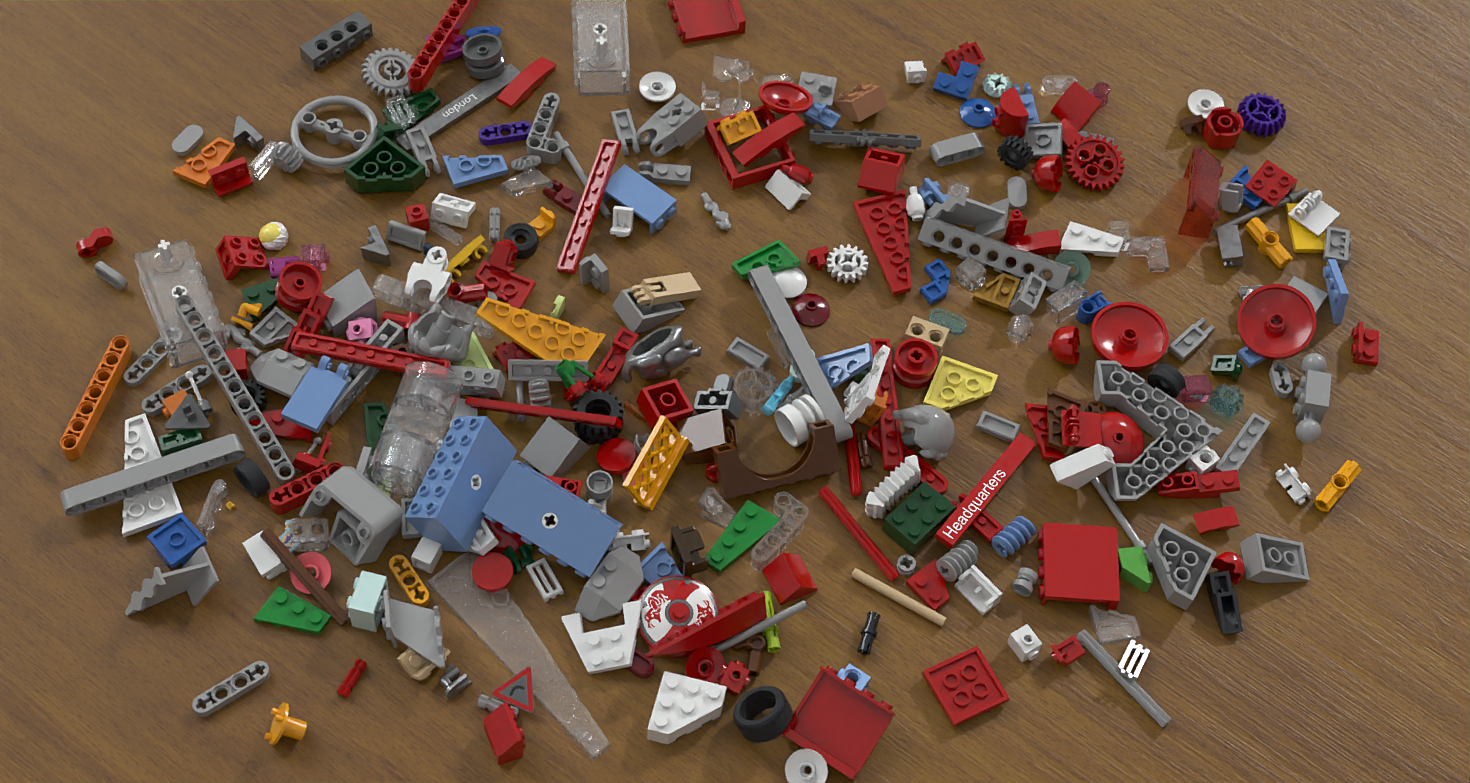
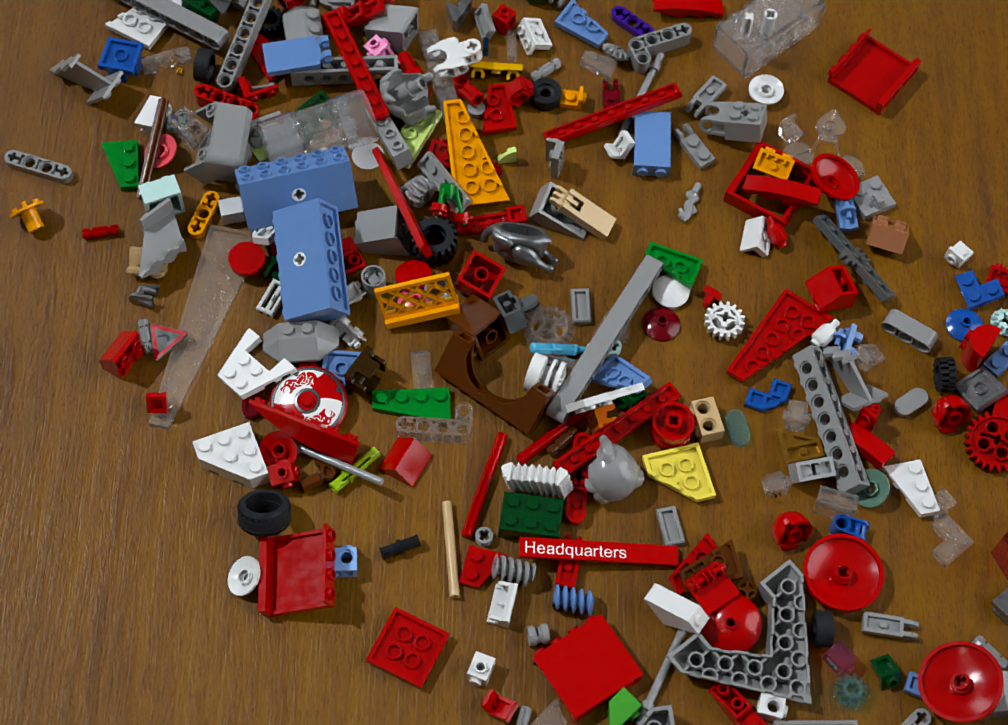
camera: 55 degrees right, 5 degrees up
(583, 734) = (157, 402): none -> red tile

